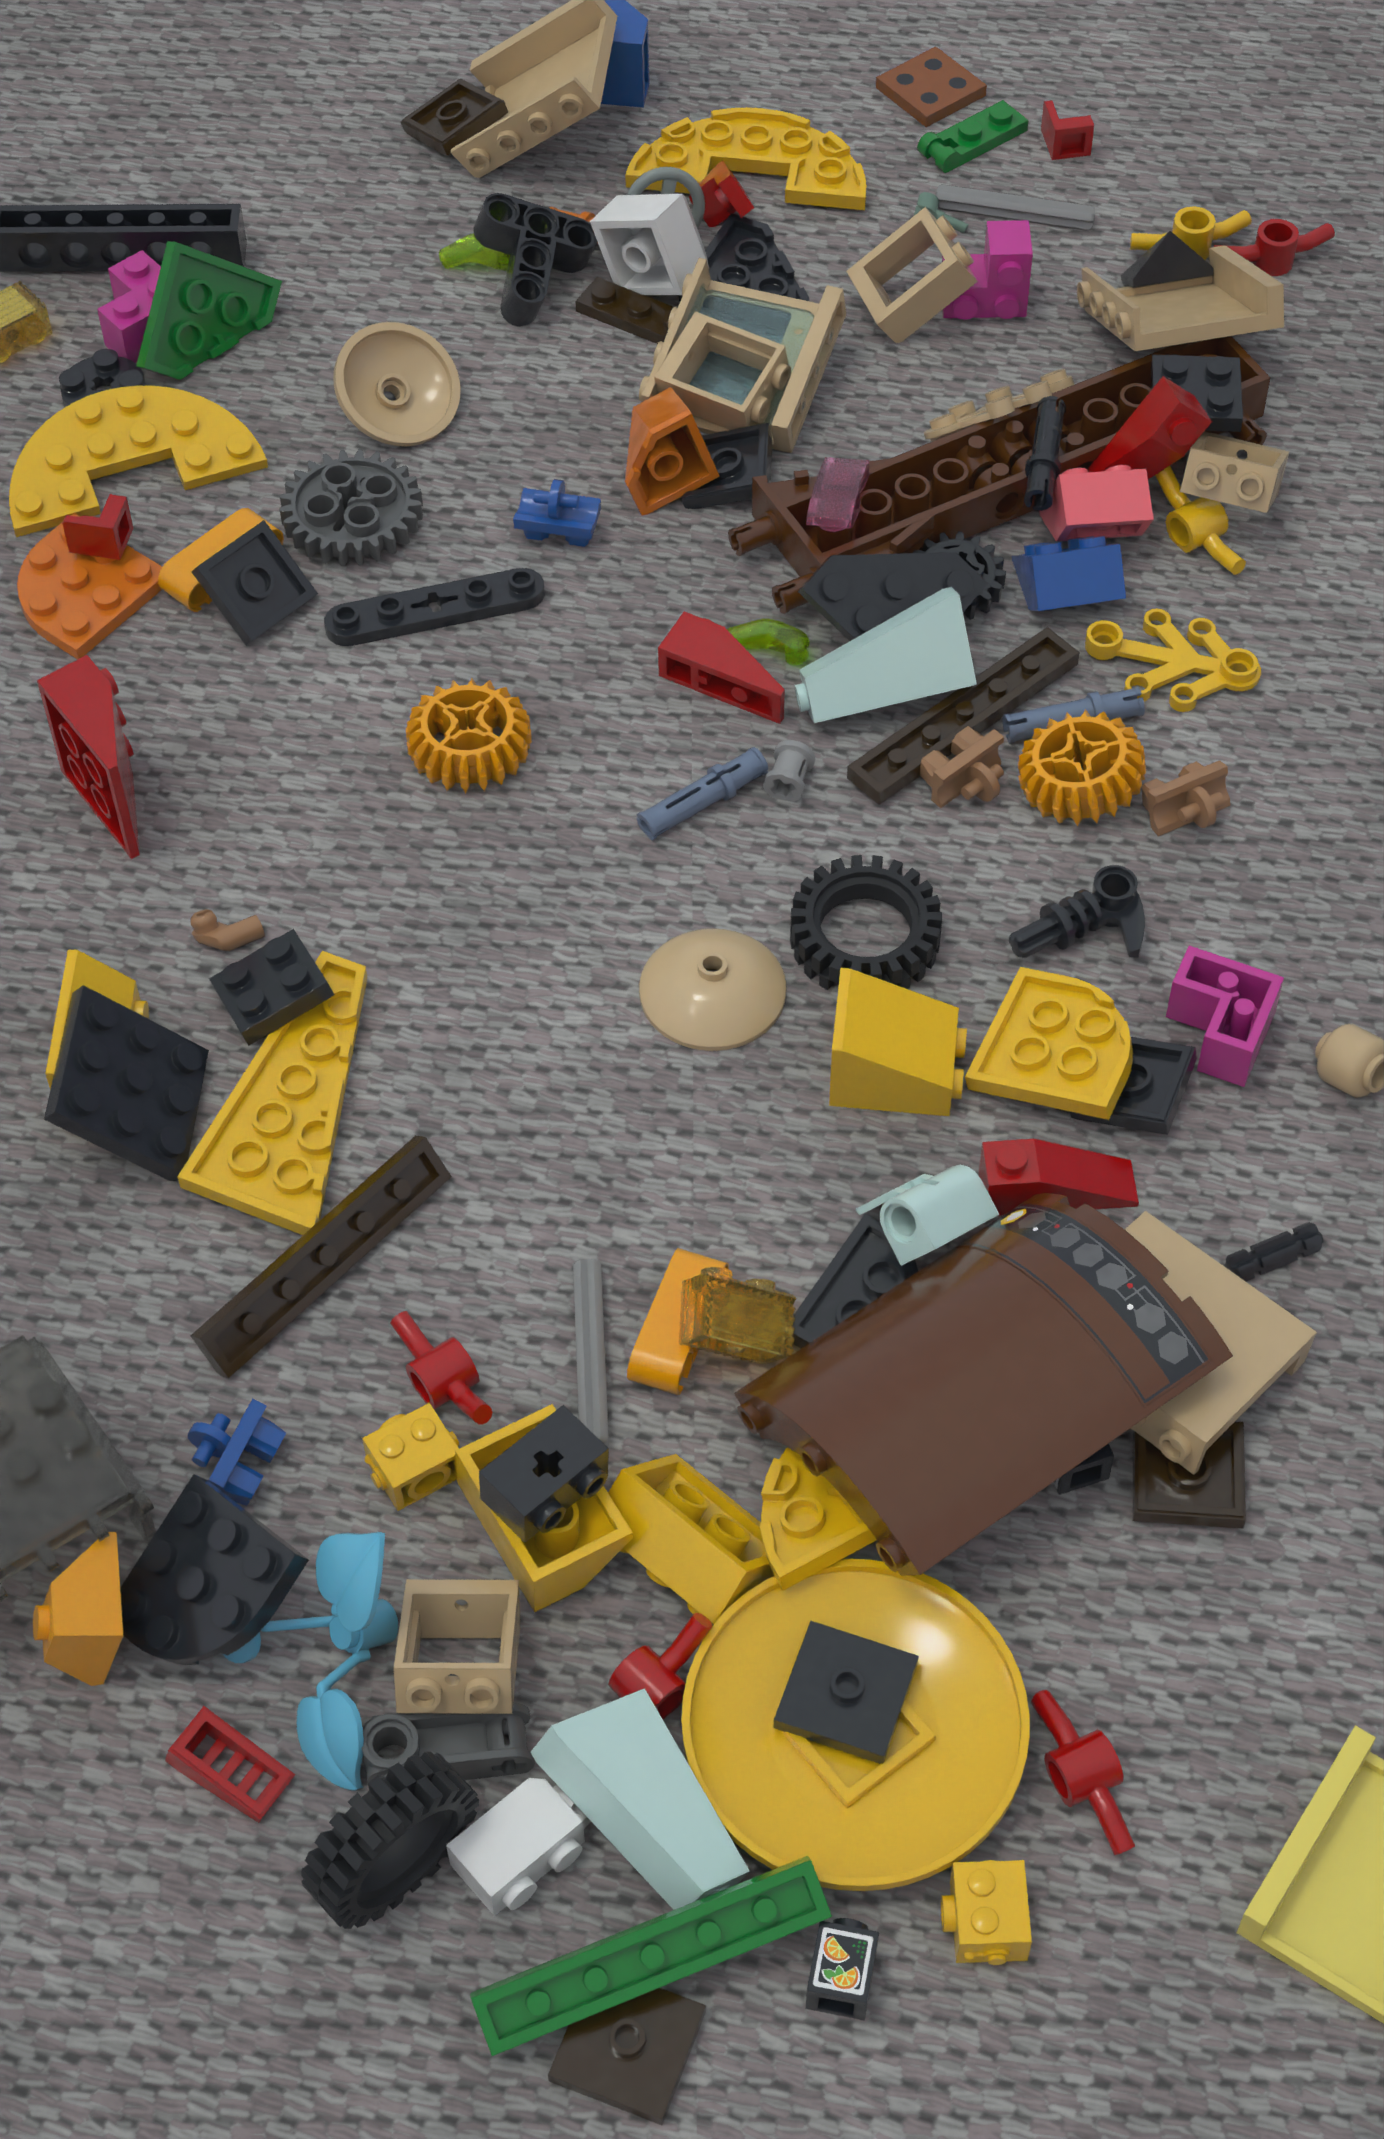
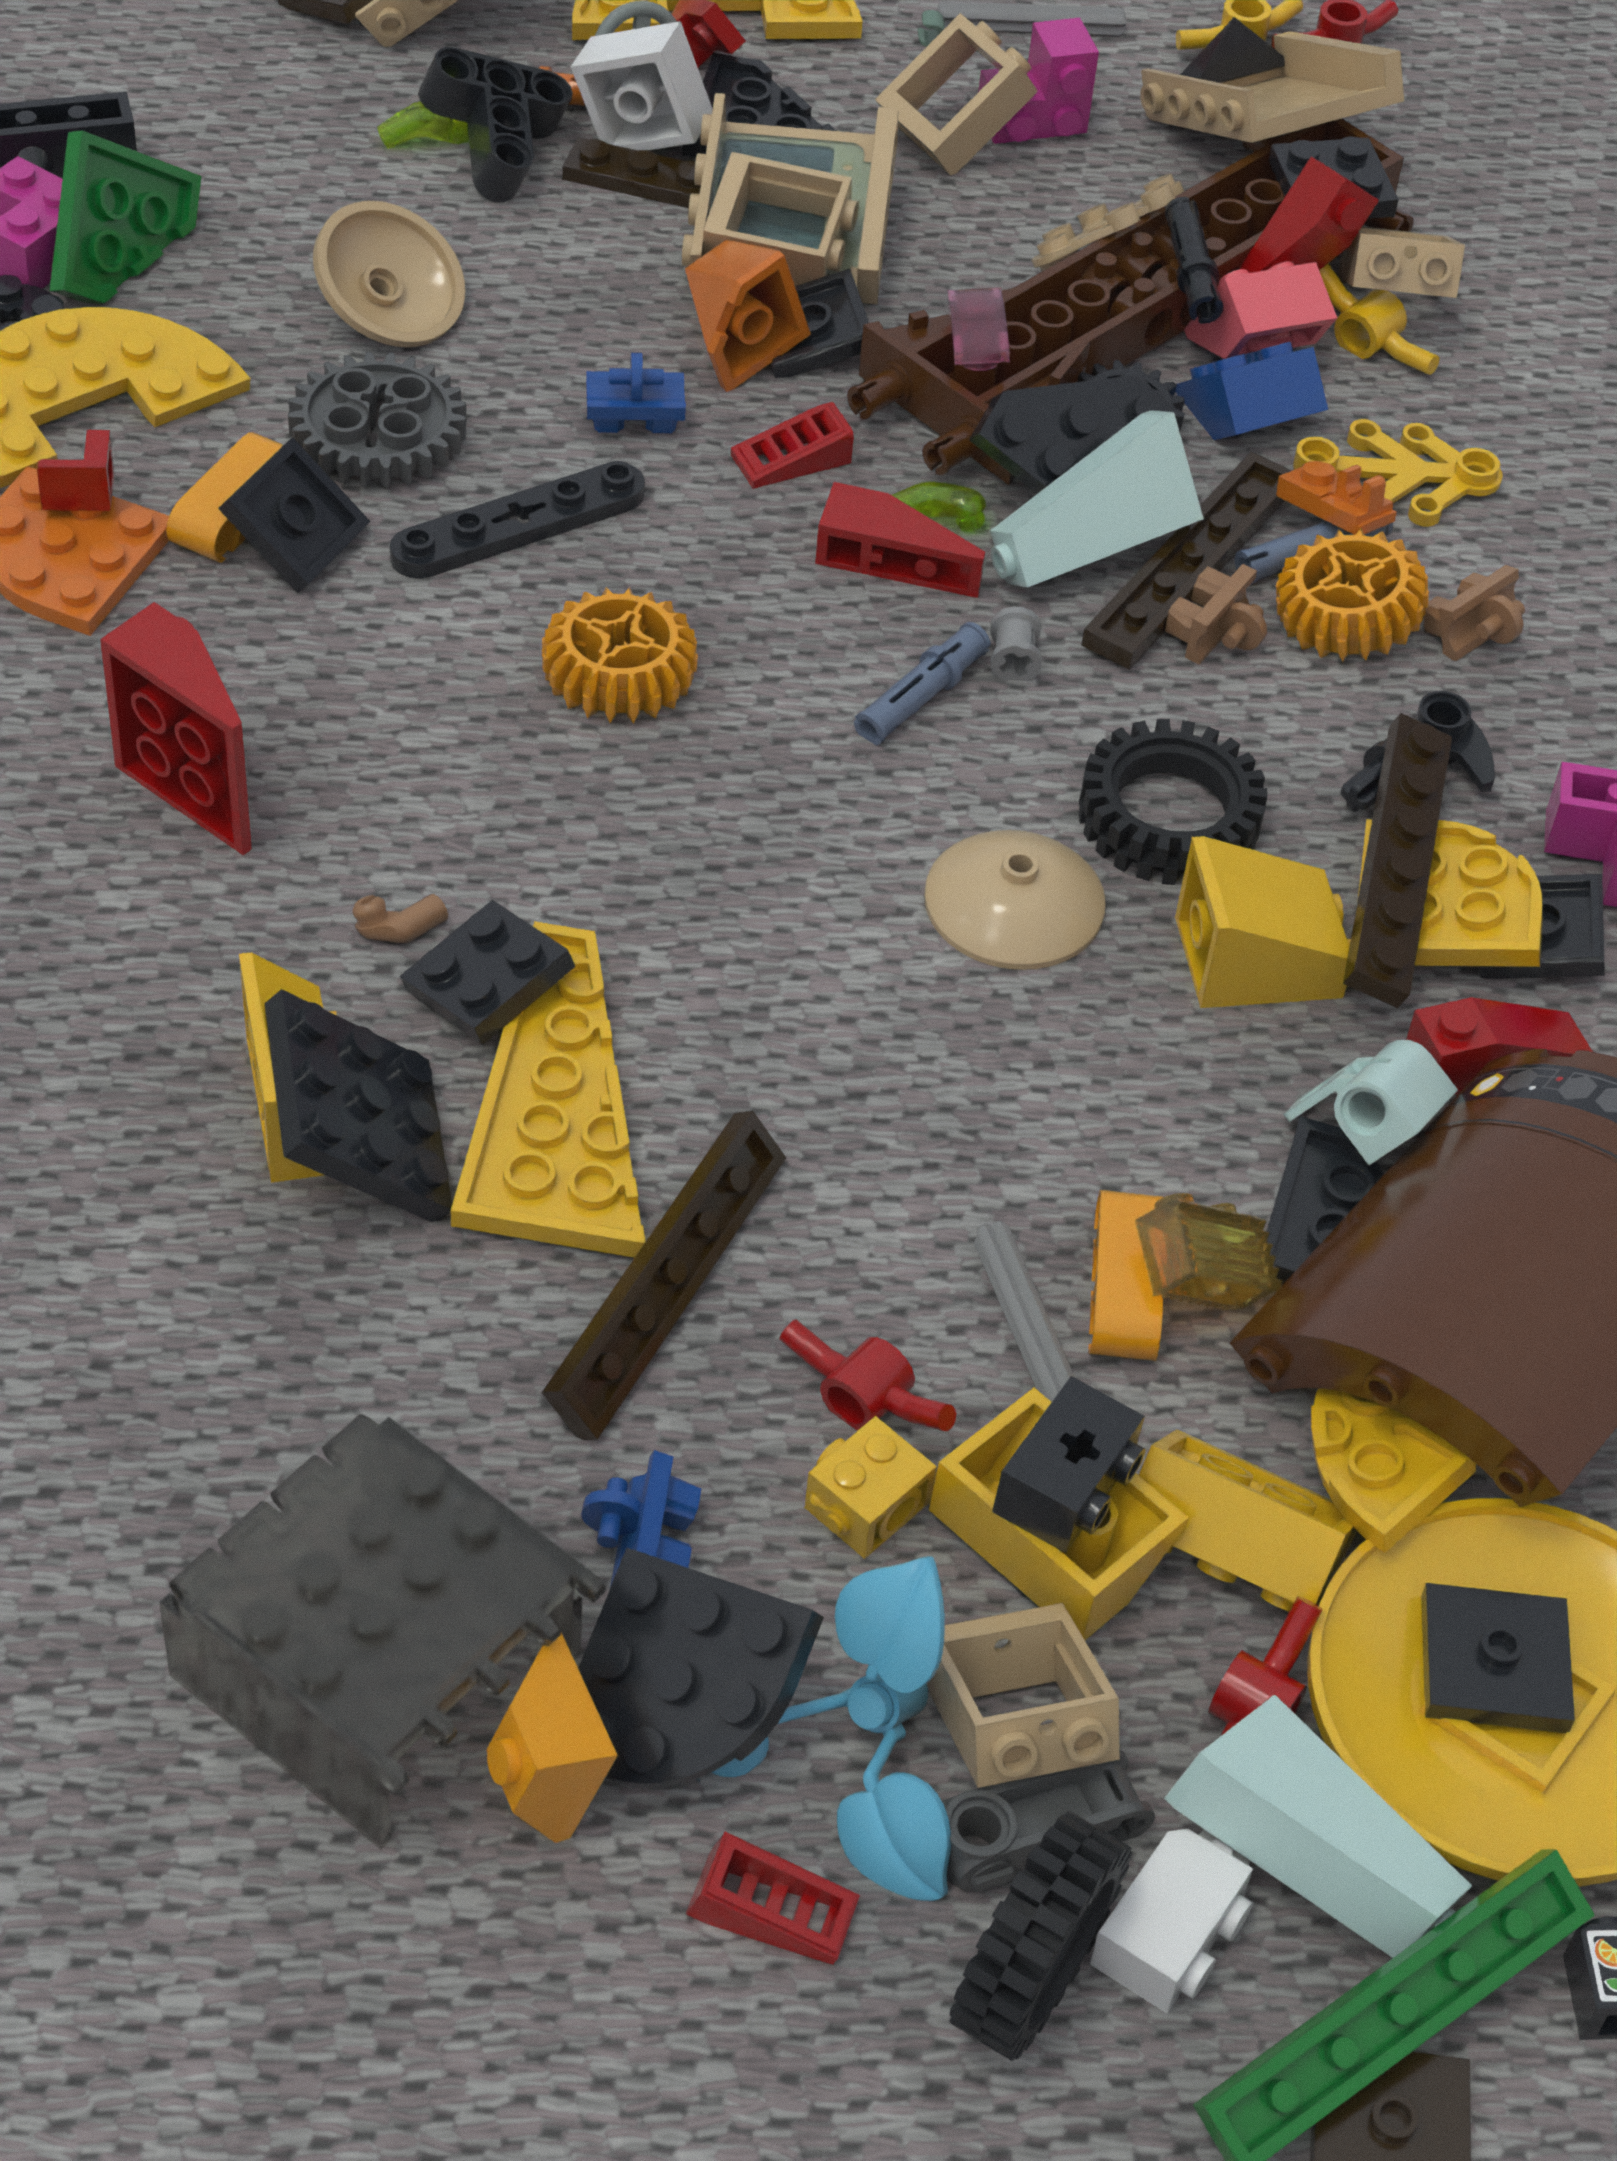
camera: 20 degrees left, 5 degrees down
(696, 559) = (828, 447): none -> red slope
(1021, 1009) = (1398, 861): none -> dark brown plate
(1098, 680) = (1338, 496): none -> orange plate

